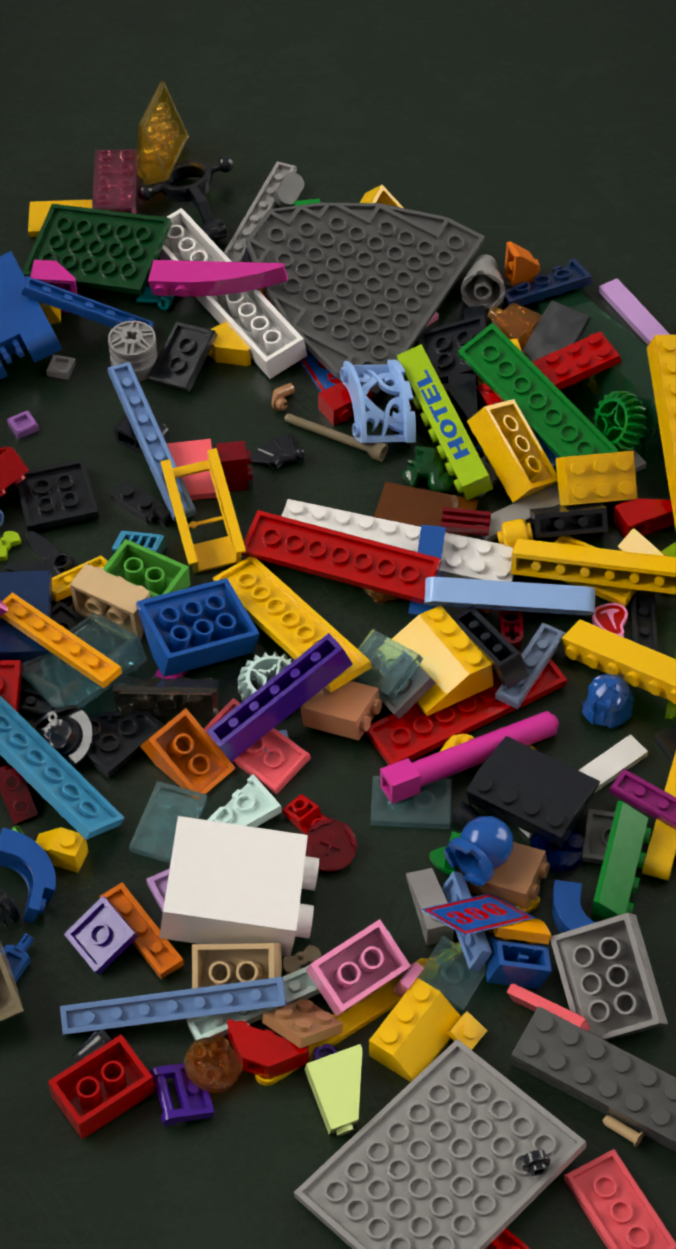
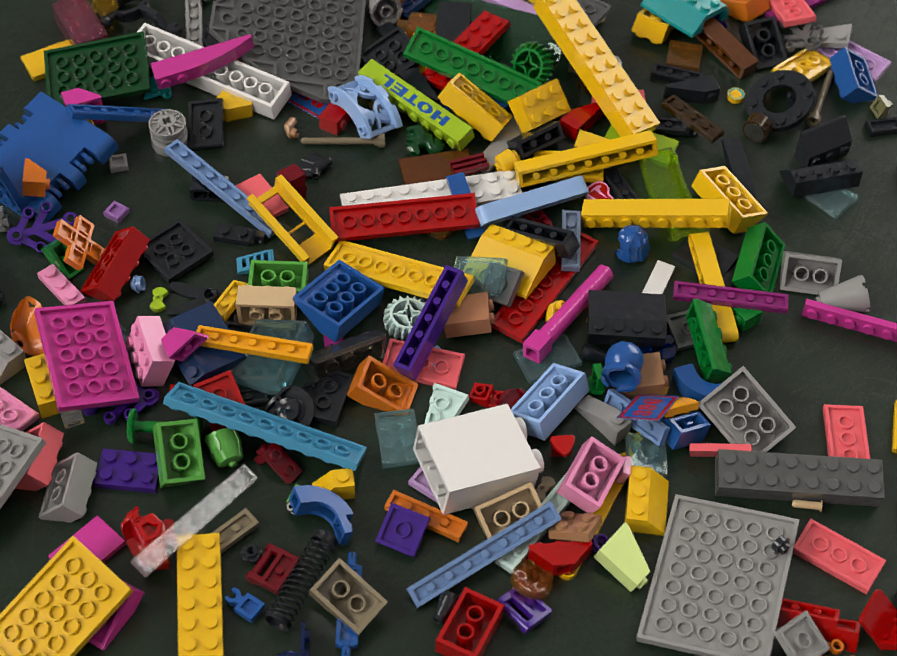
camera: 30 degrees left, 0 degrees up
(353, 916) = (562, 445): none -> red tile
(374, 854) = (551, 399): none -> light blue slope
(467, 1030) = (676, 485): yellow plate -> none

